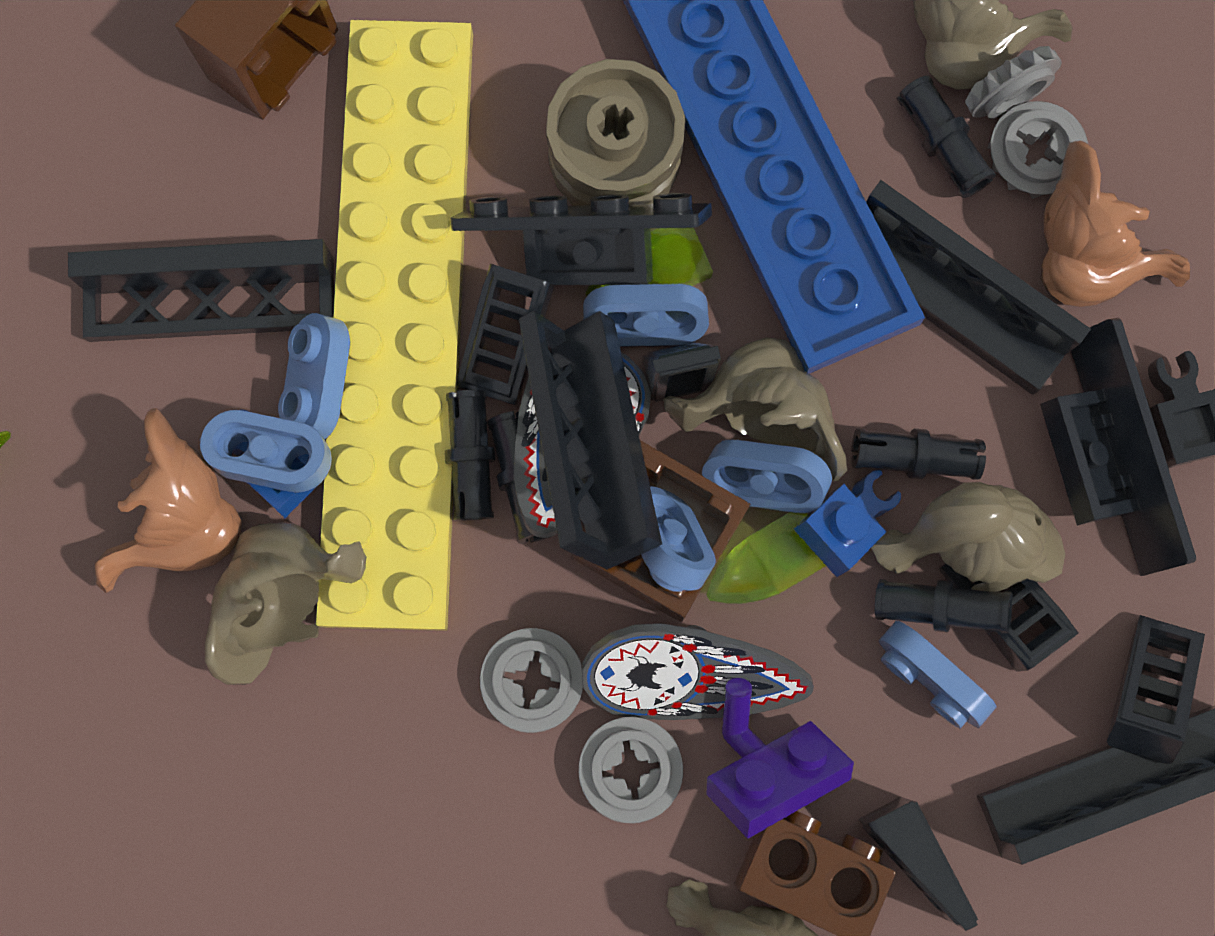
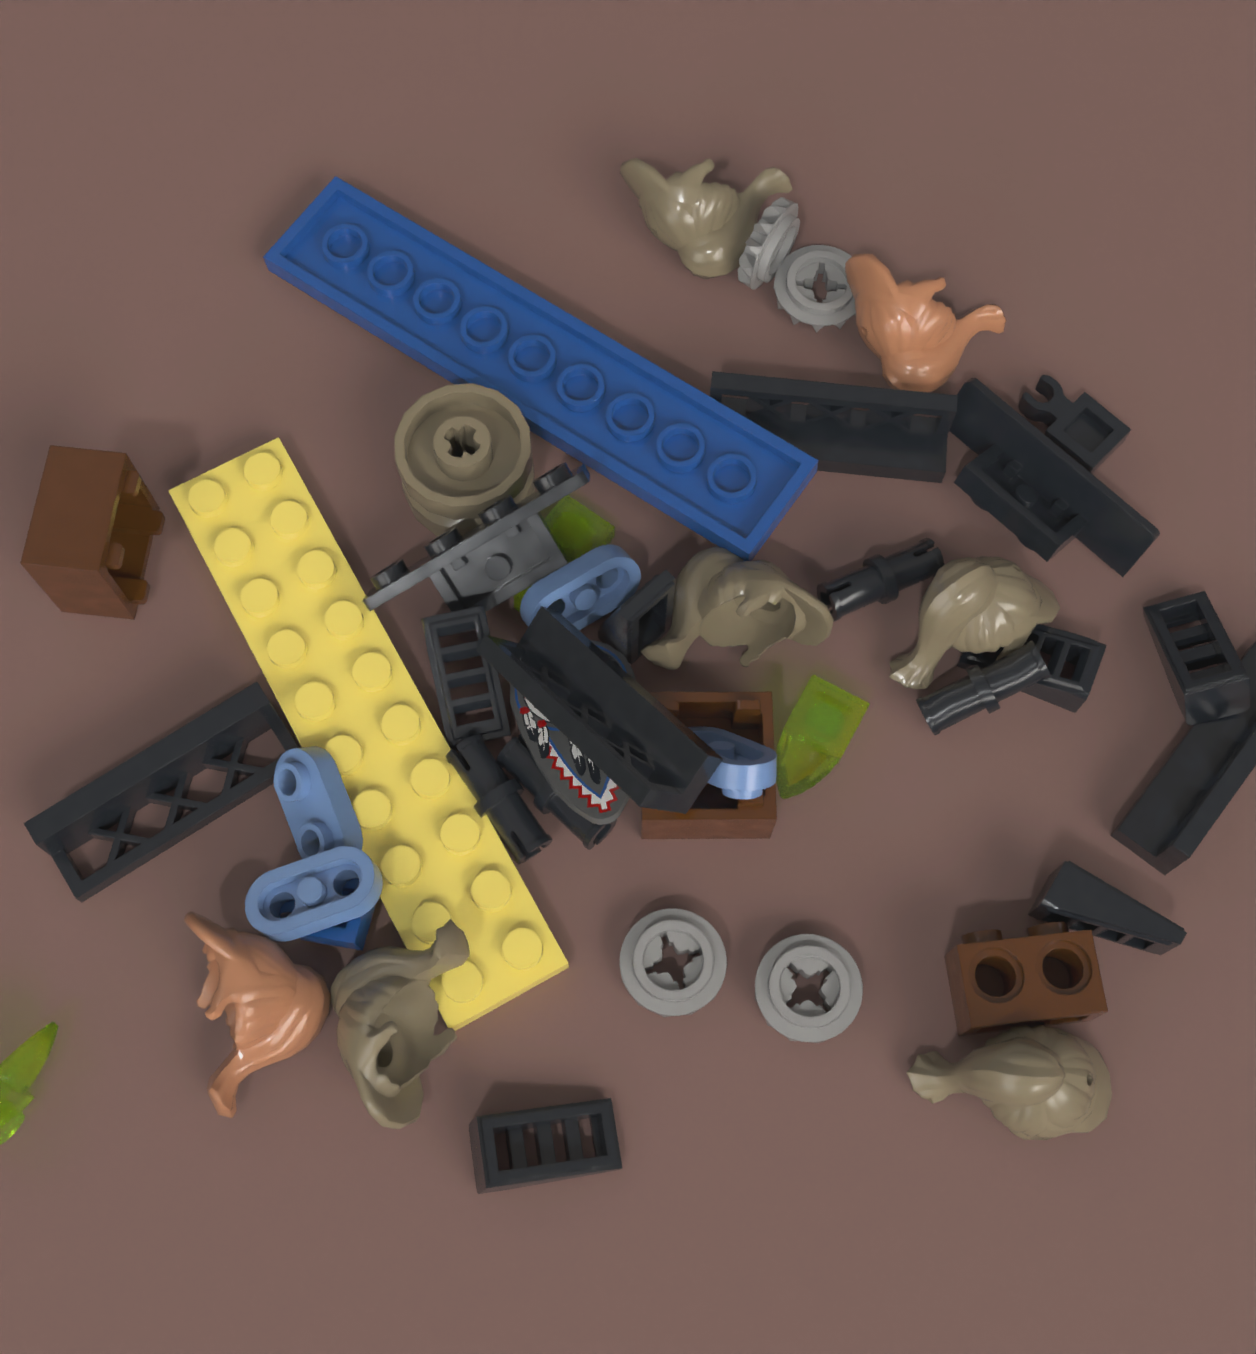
camera: 30 degrees left, 10 degrees down
(391, 786) = (512, 1123): none -> black slope
(684, 673) = (807, 871): shield -> none
(770, 475) = (772, 661): medium blue plate -> none
(772, 777) = (938, 914): dark purple plate -> none
(846, 524) = (859, 669): blue plate -> none
(946, 136) = (739, 316): black pin -> none
(956, 695) = (992, 746): medium blue plate -> none

